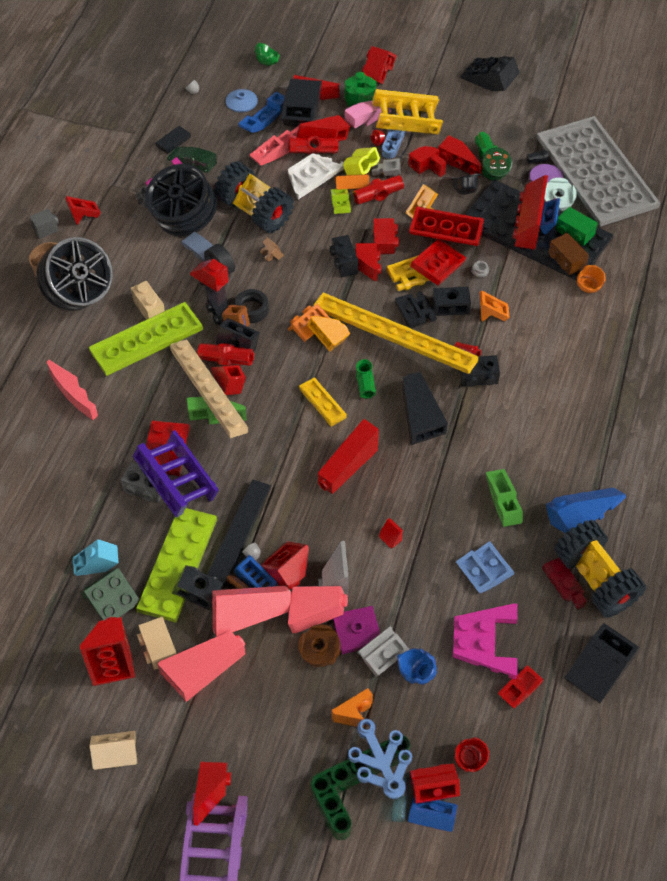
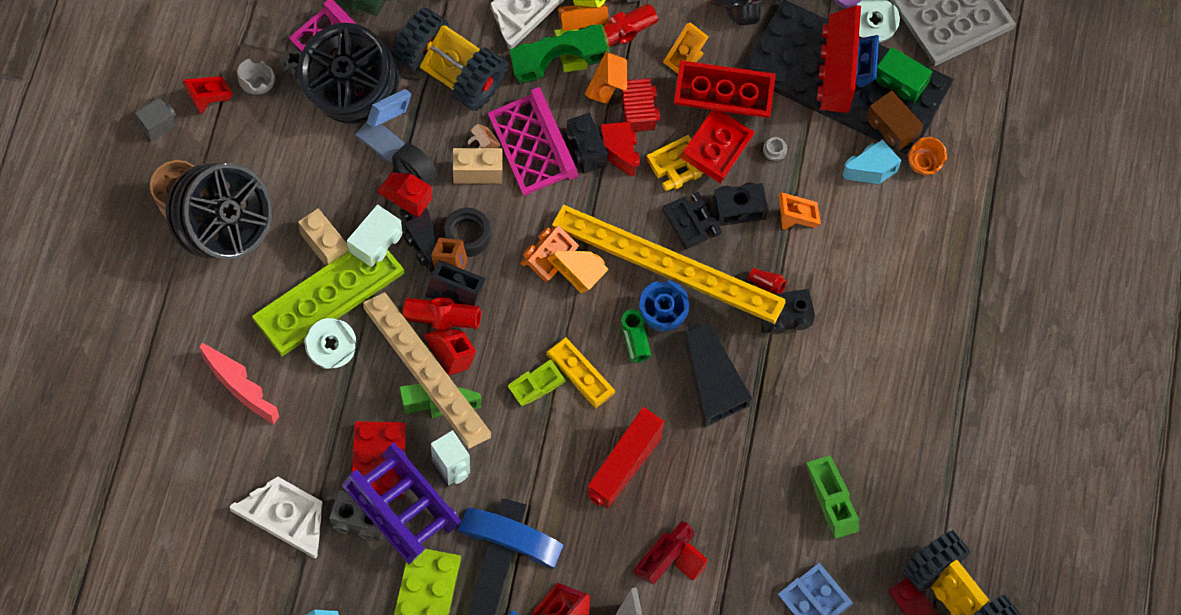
camera: 10 degrees left, 10 degrees up
(90, 478) = (285, 514): none -> white wing
(117, 203) = (255, 77): none -> light grey hair
(137, 377) = (344, 346): none -> light aqua plate
(183, 300) = (375, 236): none -> light aqua brick
(206, 224) = (389, 108): none -> medium blue tile
(217, 447) = (450, 458): none -> light aqua brick
(252, 550) = (515, 602): light grey hinge -> none
(257, 504) = (512, 535): none -> blue slope
(264, 265) = (477, 165): none -> tan brick
(286, 408) = (536, 384): none -> lime slope
(313, 202) = (532, 59): none -> green arch
(318, 246) = (551, 132): none -> dark pink fence
(364, 214) = (608, 76): none -> orange slope
(370, 526) = (663, 553): none -> dark red hinge
(388, 359) = (664, 305): none -> blue cylinder
(550, 283) = (873, 165): none -> medium azure slope
(576, 508) = (936, 507): blue wedge -> none

